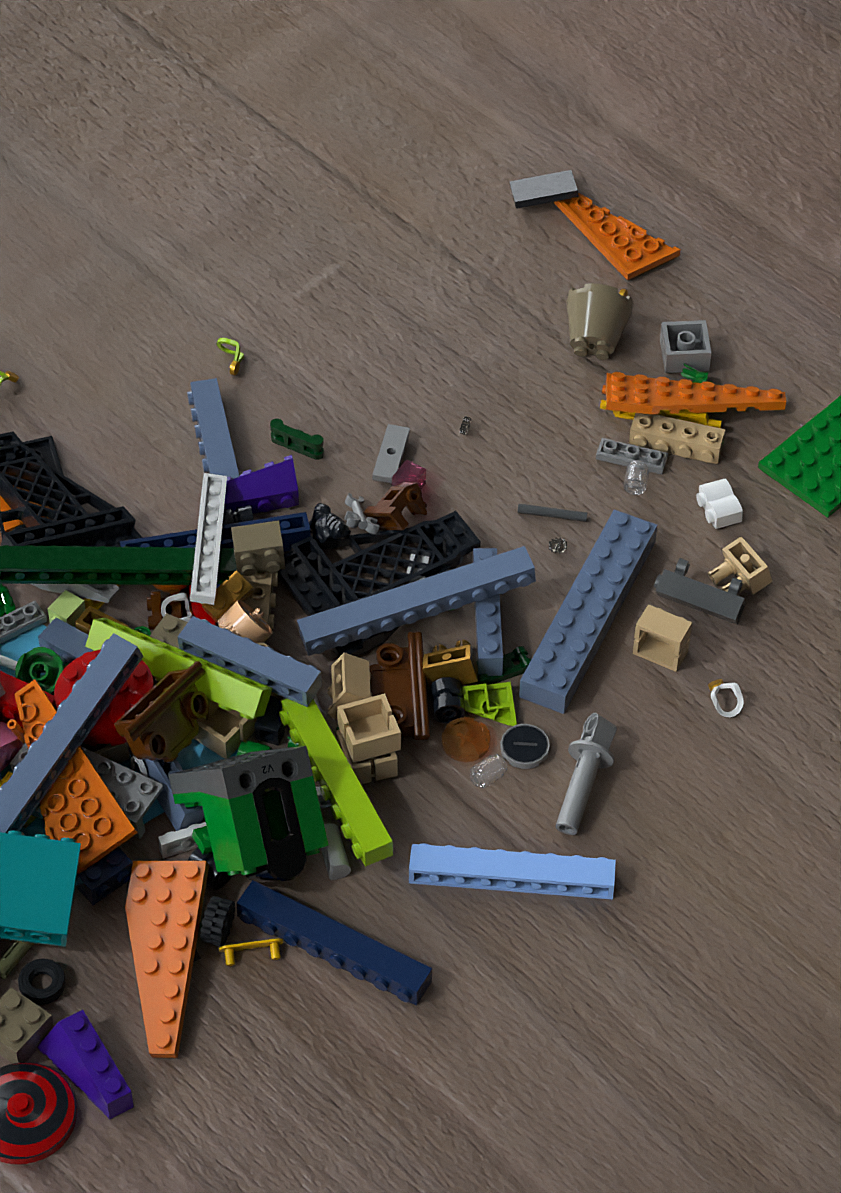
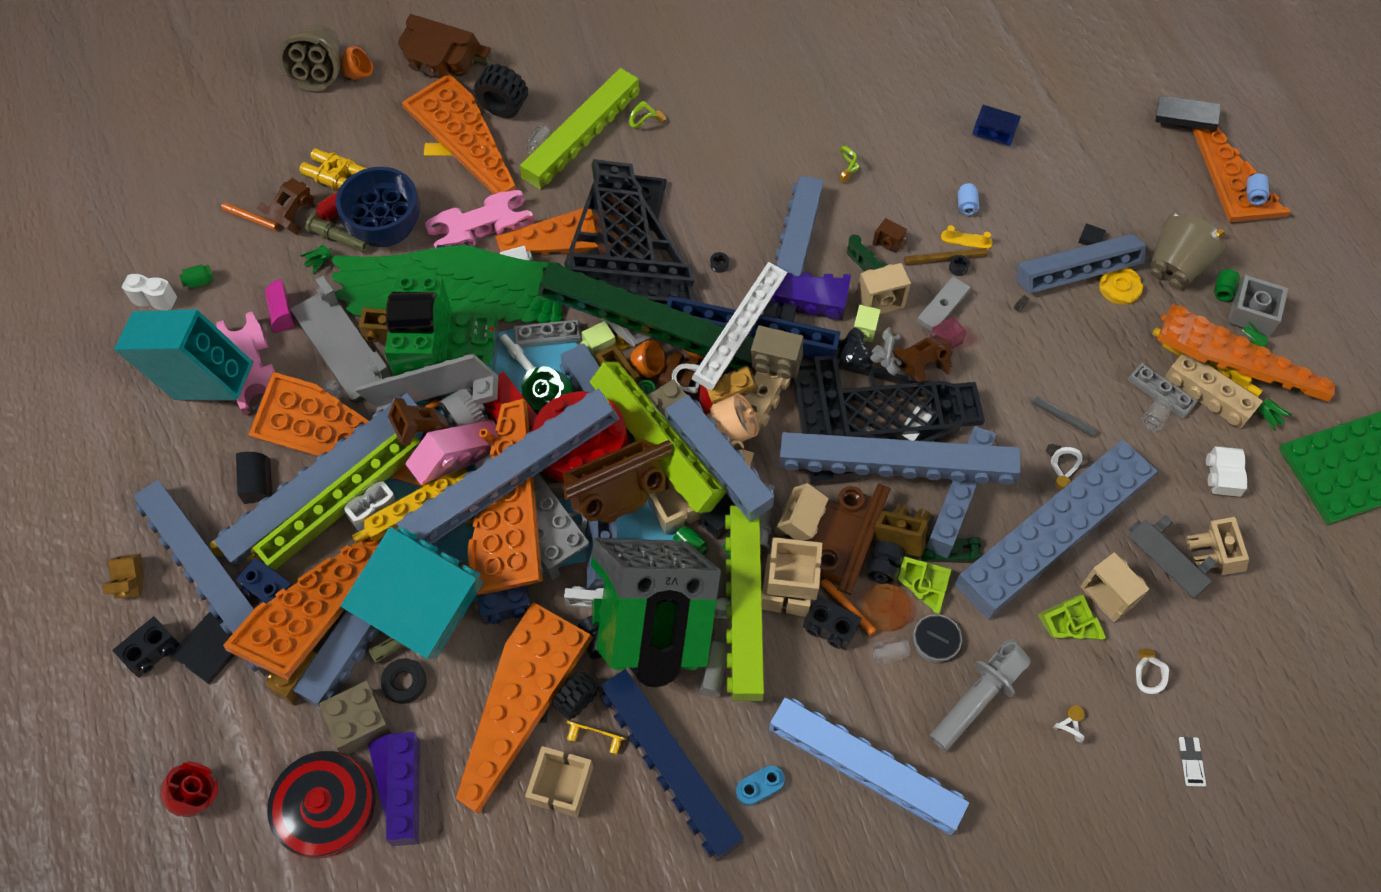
camera: 25 degrees right, 10 degrees up
(127, 608) = (648, 359): none -> orange hat
(149, 489) = (723, 266): none -> black bush
(241, 1001) = (559, 783): none -> tan piece
(308, 408) = (890, 235): none -> reddish brown brick
(325, 493) = (867, 321): none -> yellowish green brick
(327, 460) = (884, 288): none -> tan brick
(363, 265) = (996, 125): none -> clear blue brick
(368, 346) = (968, 199): none -> light blue brick
(376, 406) = (944, 256): none -> pearl gold bar
(383, 414) = (959, 271): none -> black bush
(384, 386) = (965, 239): none -> yellow piece
(423, 765) = (835, 617): none -> black brick
(426, 927) = (760, 785): none -> dark azure plate
(433, 753) = (846, 604): none -> orange bar
(504, 339) = (1091, 235): none -> black tile
(504, 368) = (1080, 263): none -> sand blue brick
(551, 375) = (1121, 286): none -> yellow tile
(574, 568) = (1063, 480): none -> white piece
(638, 682) = (1072, 620): none -> lime slope
(640, 238) = (1257, 189): none -> light blue brick
(649, 338) = (1226, 284): none -> green brick
(675, 760) = (1074, 714): none -> piece
(732, 436) = (1271, 412): none -> green piece
(792, 756) = (1192, 761): none -> sticker

